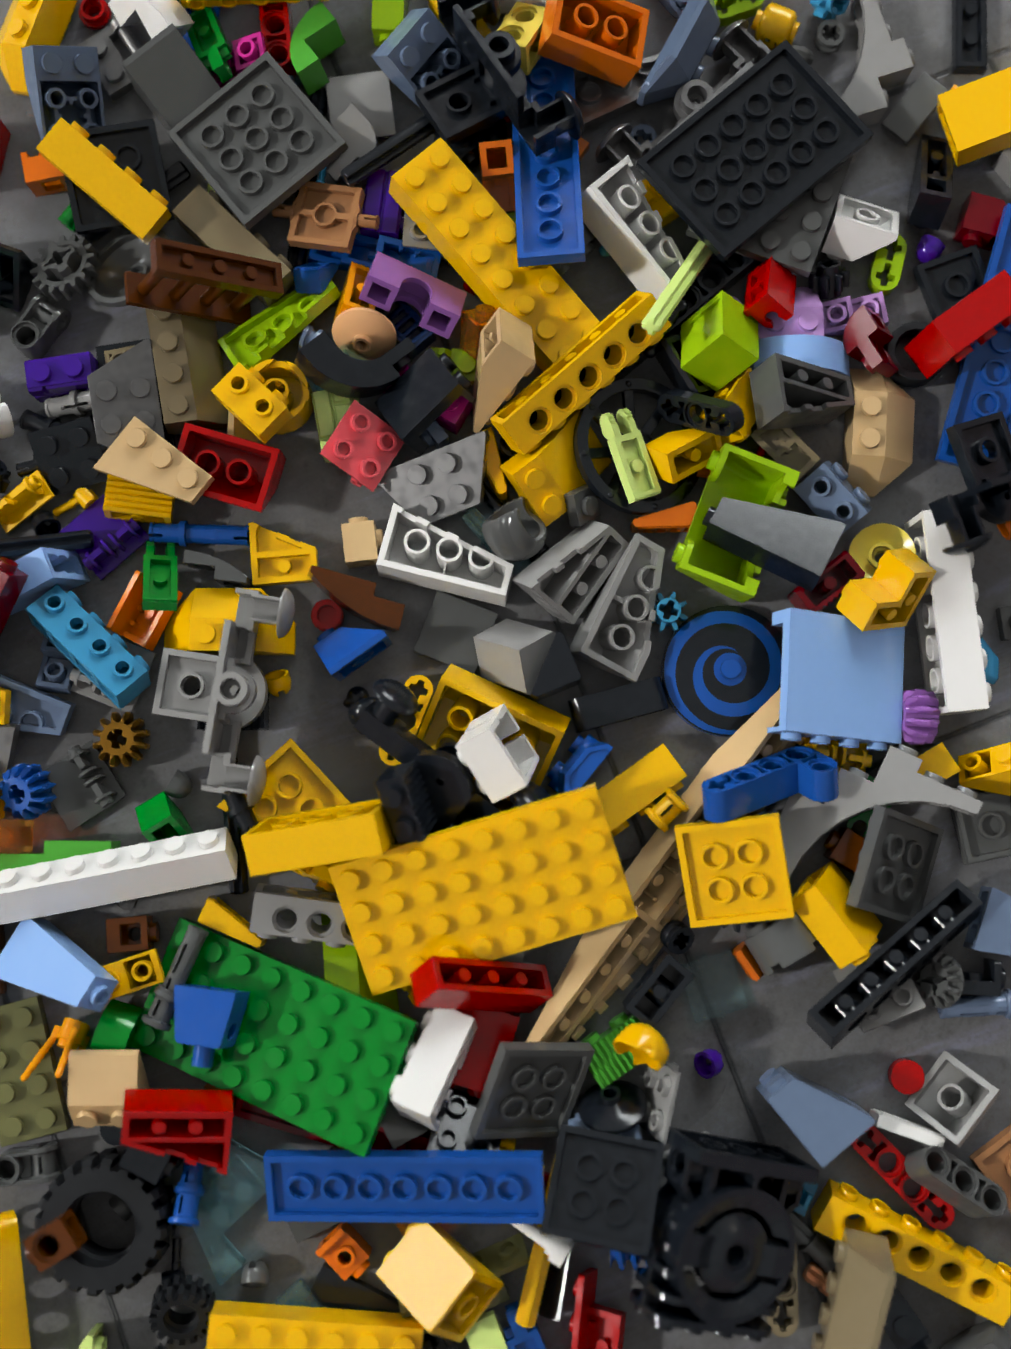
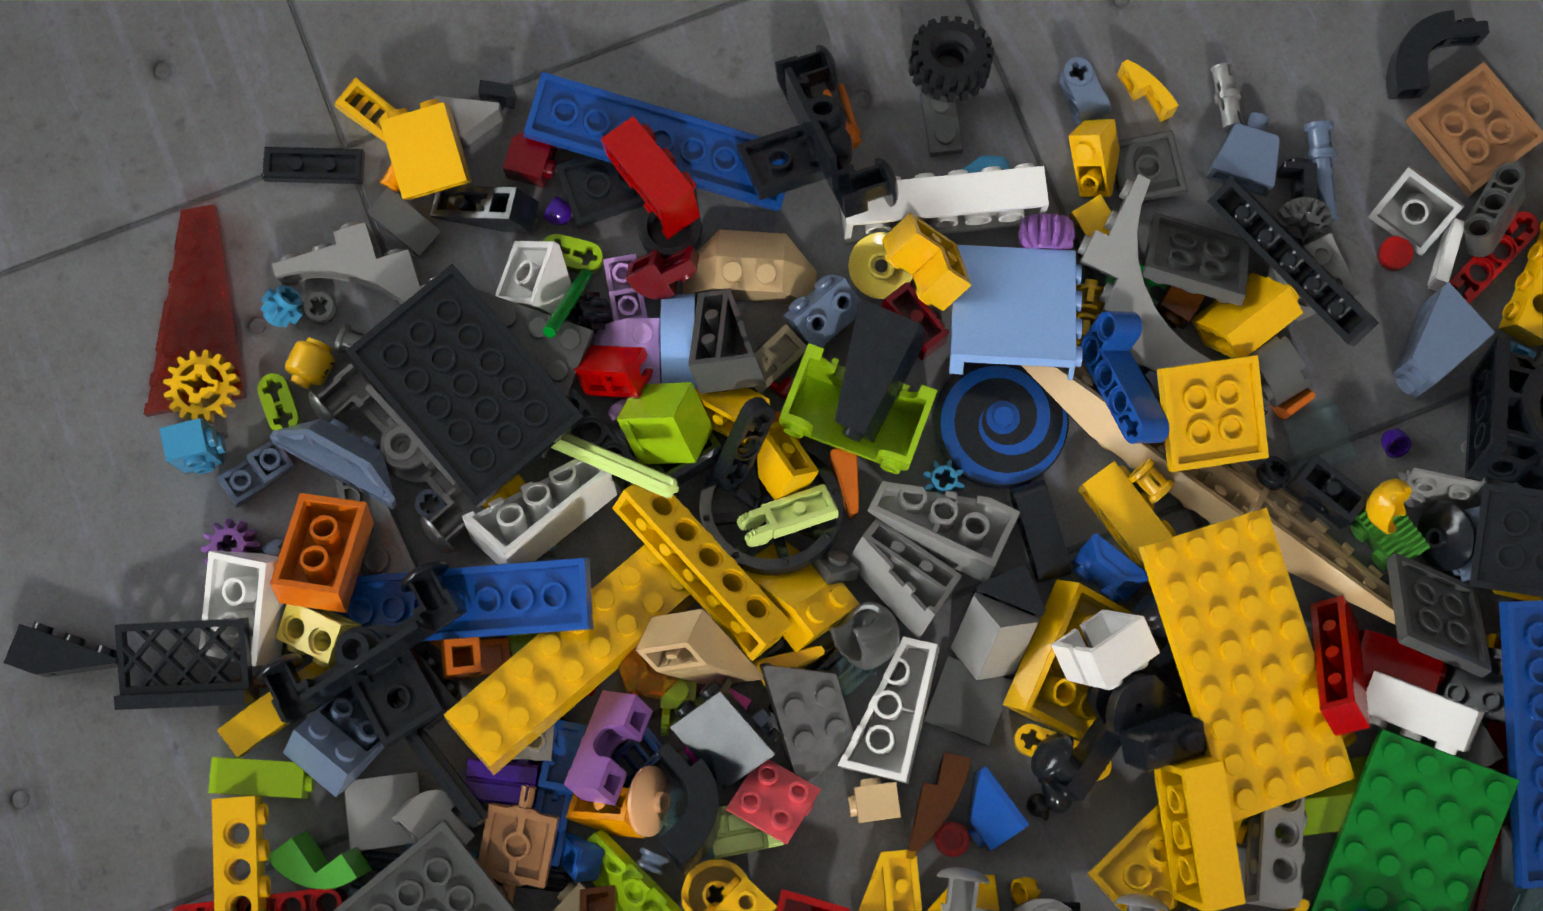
camera: 95 degrees left, 5 degrees down
(837, 250) = (567, 303): none -> green bar

